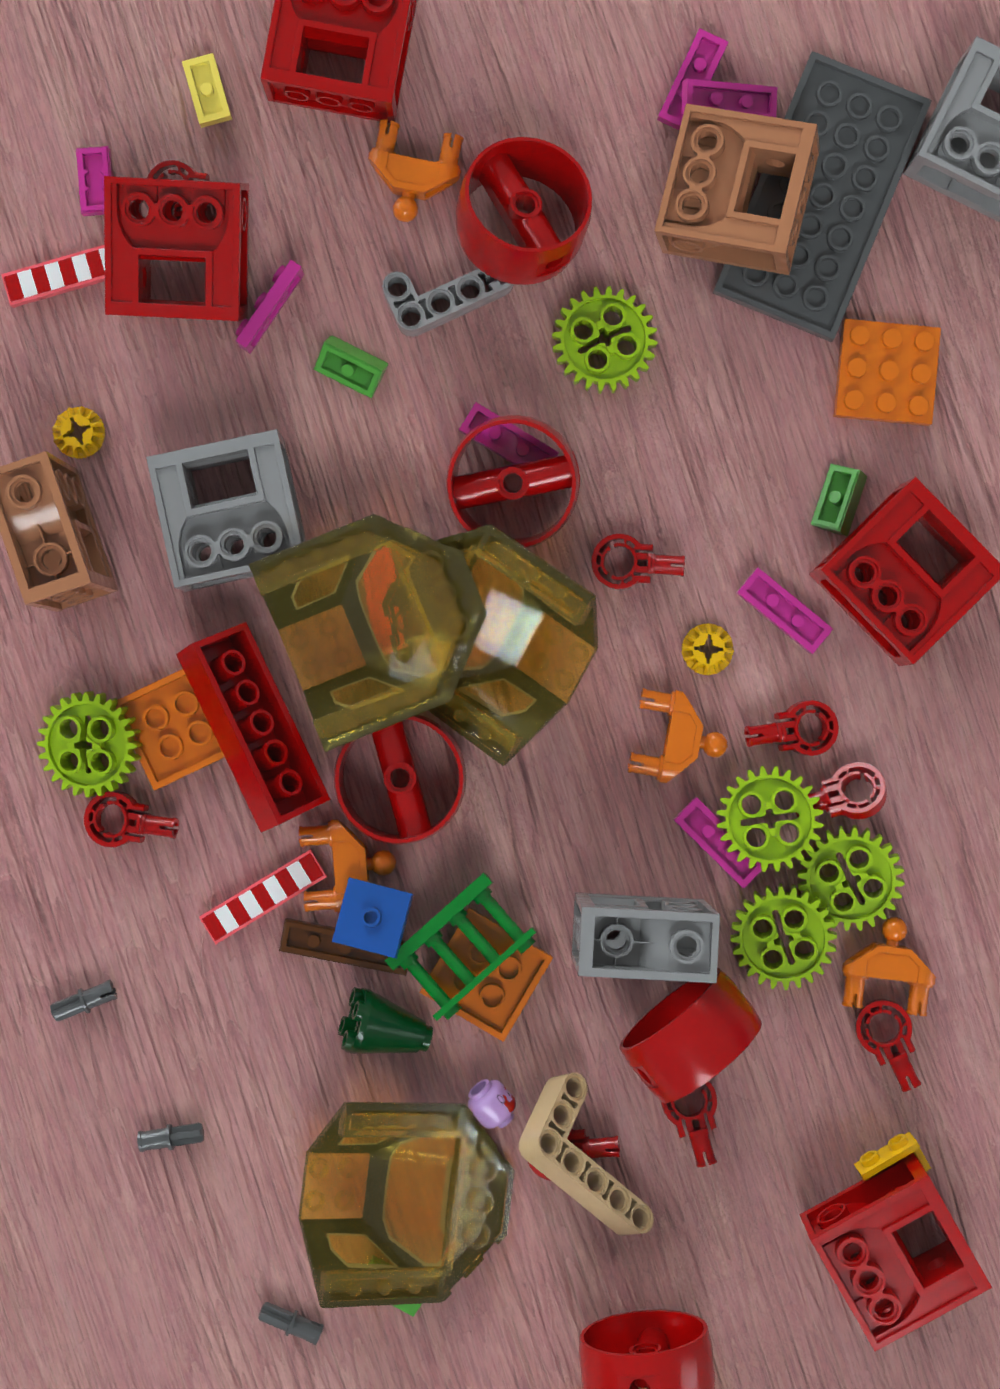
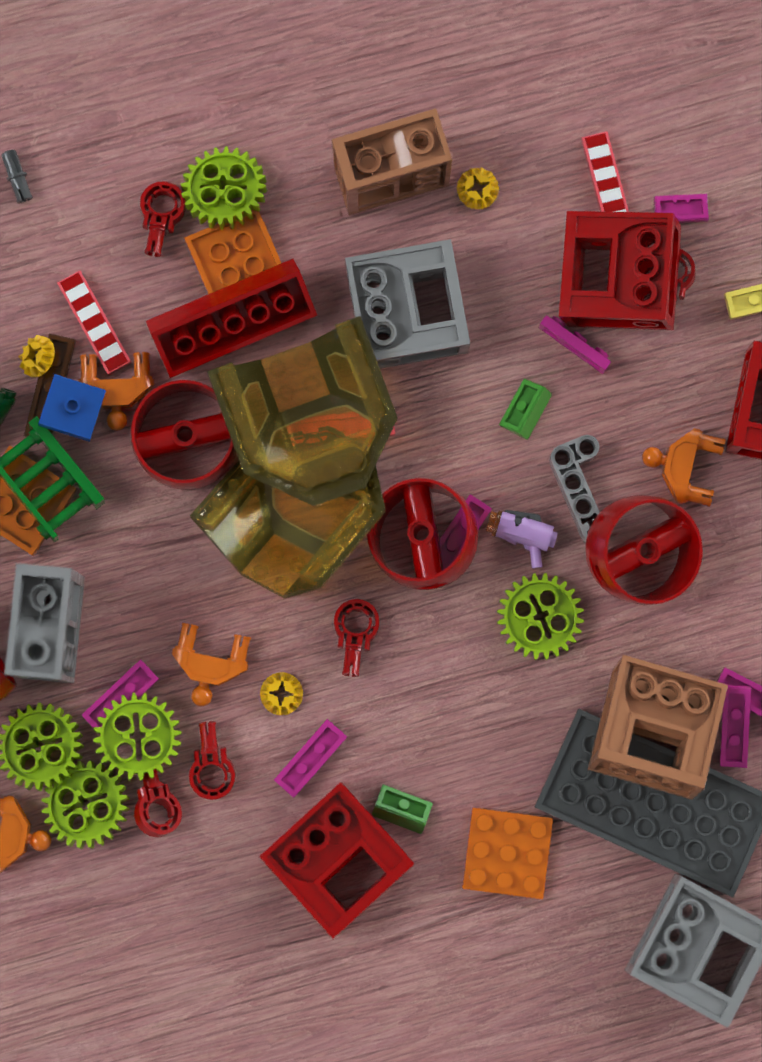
camera: 90 degrees right, 5 degrees down
(310, 955) = (44, 357): none -> yellow gear
(500, 361) = (525, 530): none -> lavender piece

